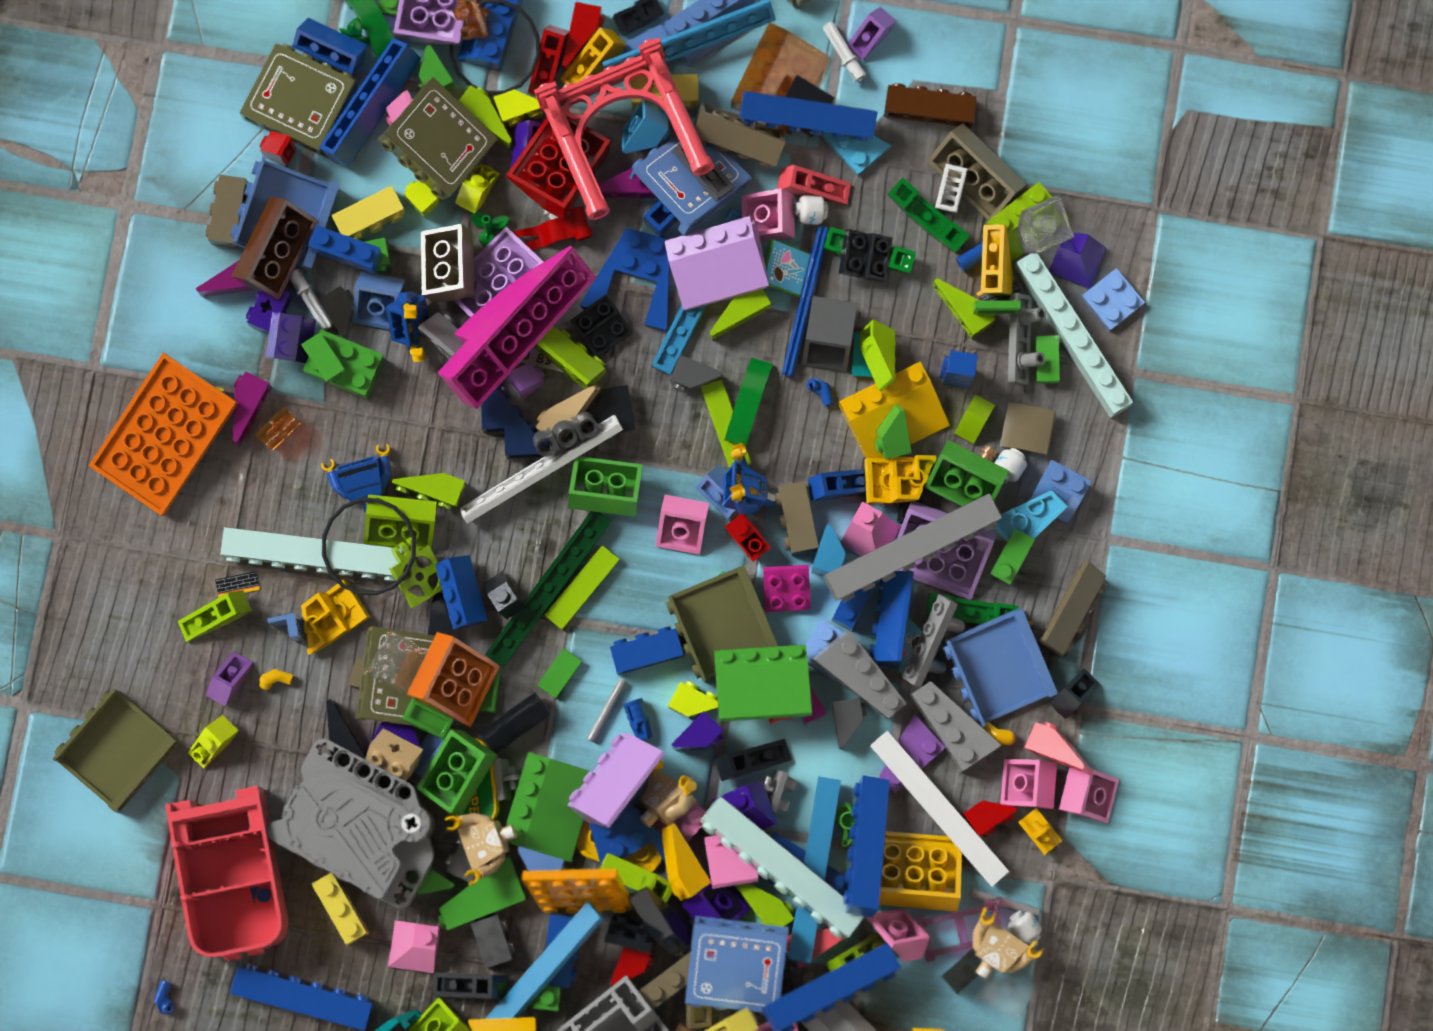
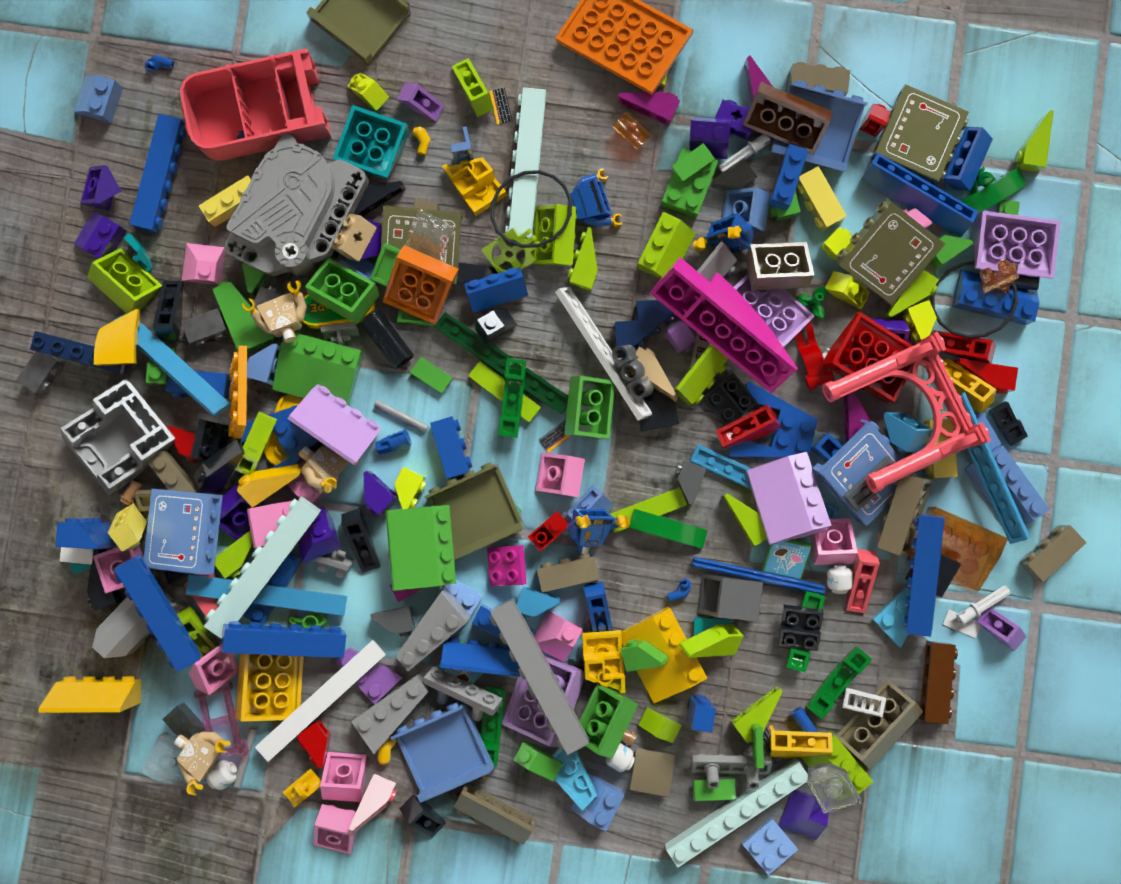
camera: 90 degrees right, 5 degrees up
(278, 736) = (371, 142): none -> teal slope
(418, 394) = (667, 243): none -> lime slope
(590, 575) = (512, 397): none -> green slope
(634, 305) = (749, 427): none -> red slope
(637, 530) = (554, 437): none -> black sticker
(870, 67) = (970, 628): none -> white sticker

